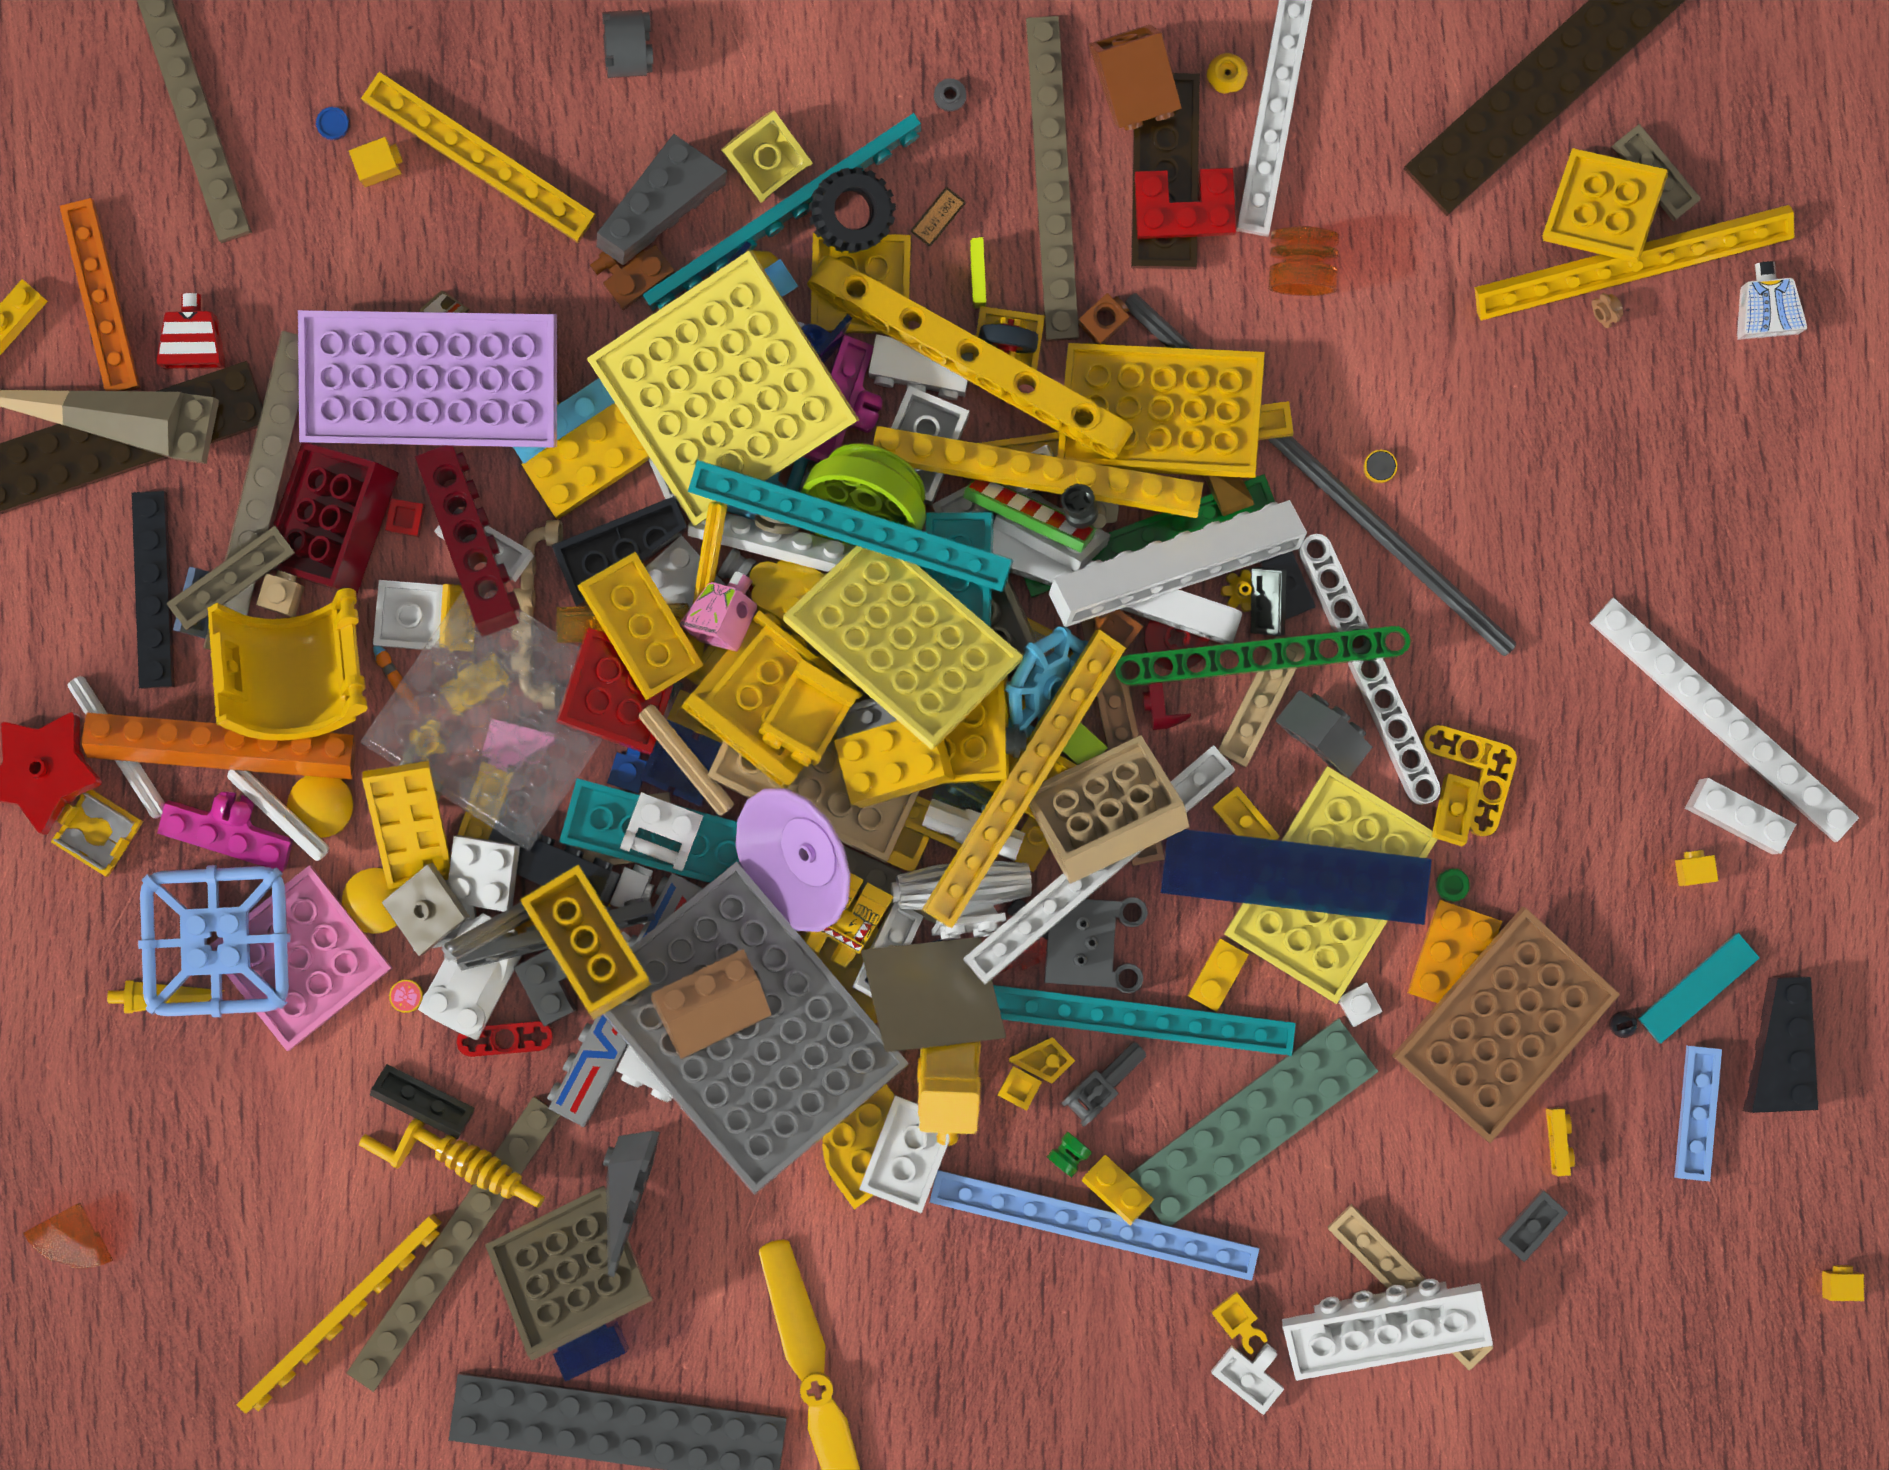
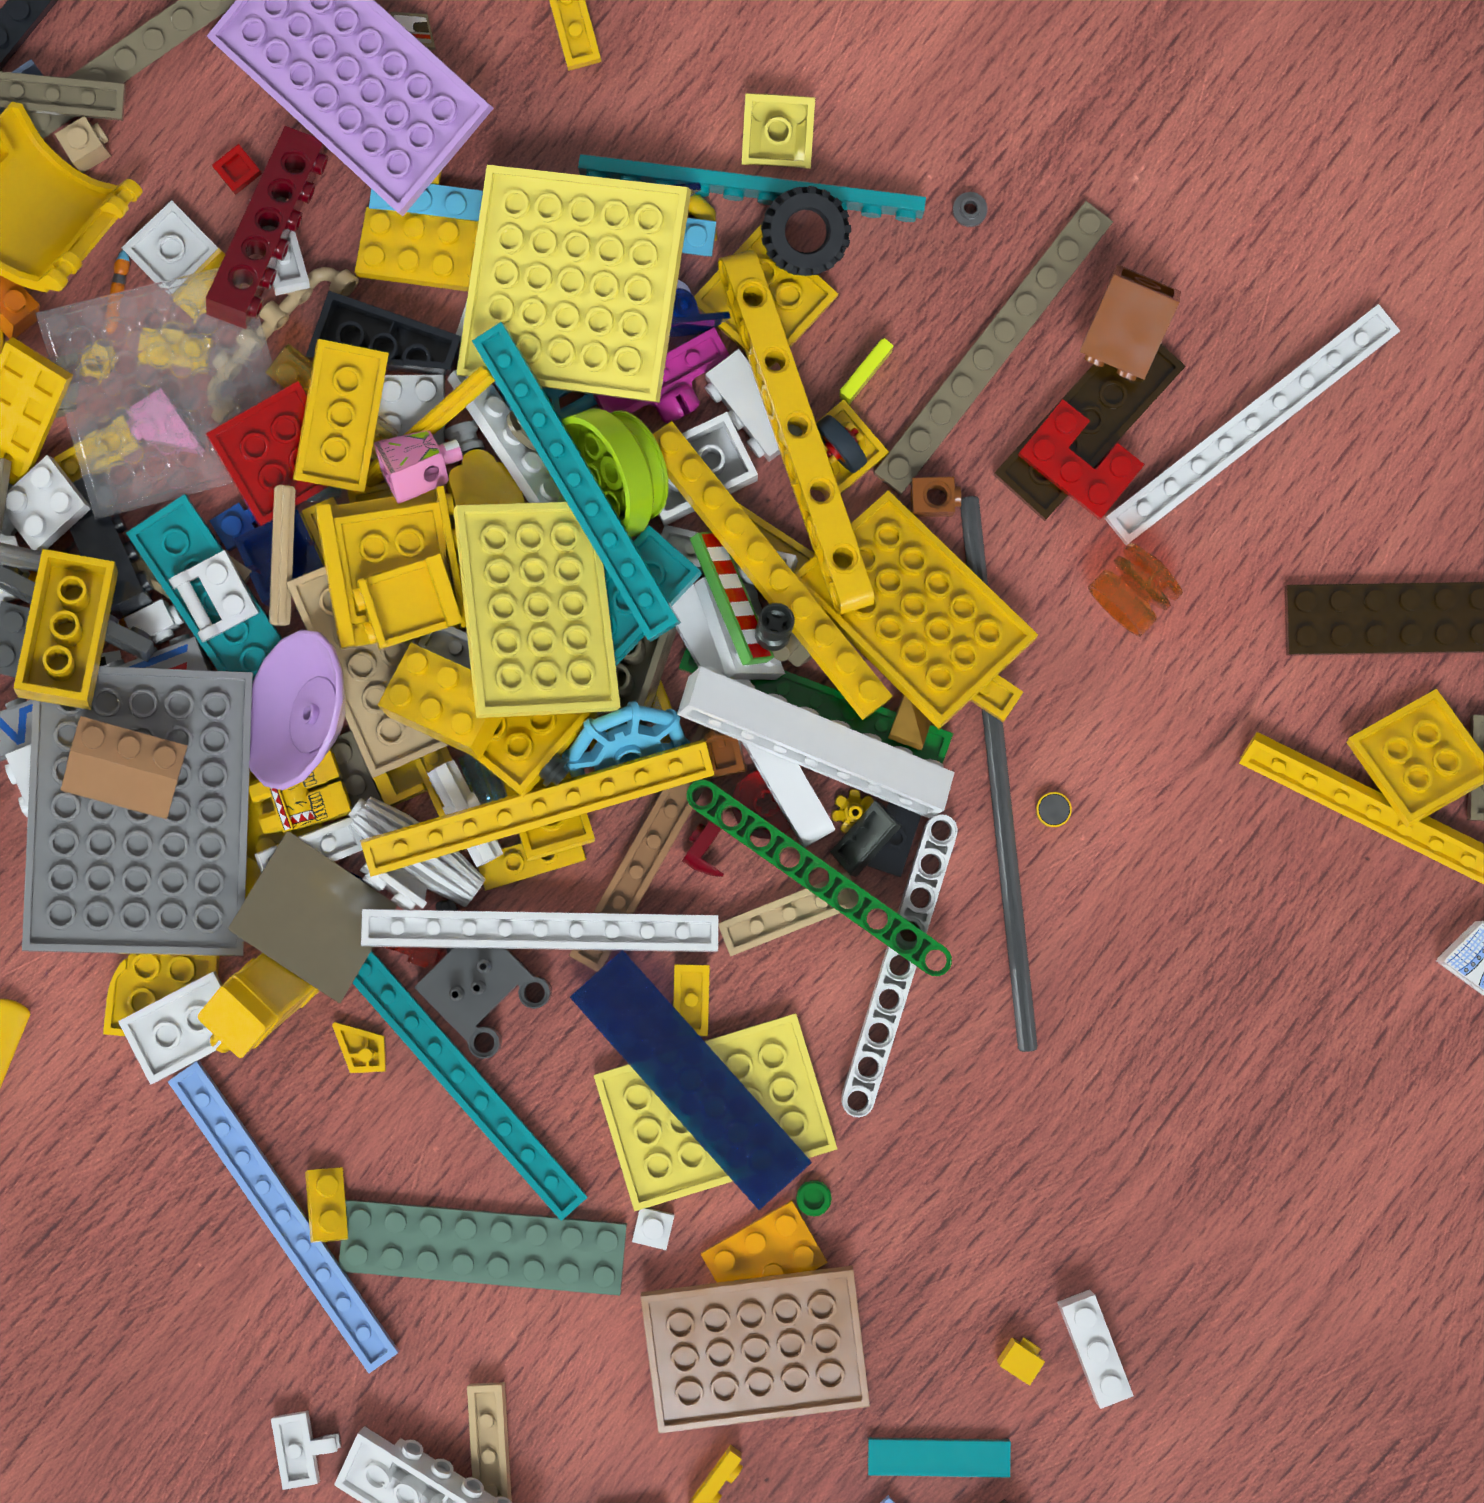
camera: 40 degrees right, 0 degrees up
(332, 515) = (179, 118): dark red slope -> none
(635, 278) = (592, 137): dark orange plate -> none
(663, 194) = (666, 88): dark grey wedge -> none
(938, 216) = (875, 299): clear orange sticker -> none
(1019, 1088) = (321, 1053): yellow plate -> none
(1063, 1159) = (313, 1142): green wheel -> none
(1083, 746) = (613, 827): lime brick -> none
(1098, 1089) = (383, 1110): dark grey connector -> none
(1107, 809) = (584, 891): tan slope -> none
(1218, 975) = (560, 1103): yellow plate -> none
(1227, 83) = (1207, 396): yellow plate -> none
(1237, 1318) = (330, 1392): yellow plate -> none
(1325, 732) = (818, 984): dark grey brick -> none
(1455, 809) = (868, 1139): yellow plate -> none
(1483, 761) = (927, 1122): yellow beam -> none
(1607, 309) = (1349, 844): medium nougat plate -> none
(1621, 1017) = (855, 1426): black hinge -> none
(1724, 720) = (1152, 1260): white plate -> none

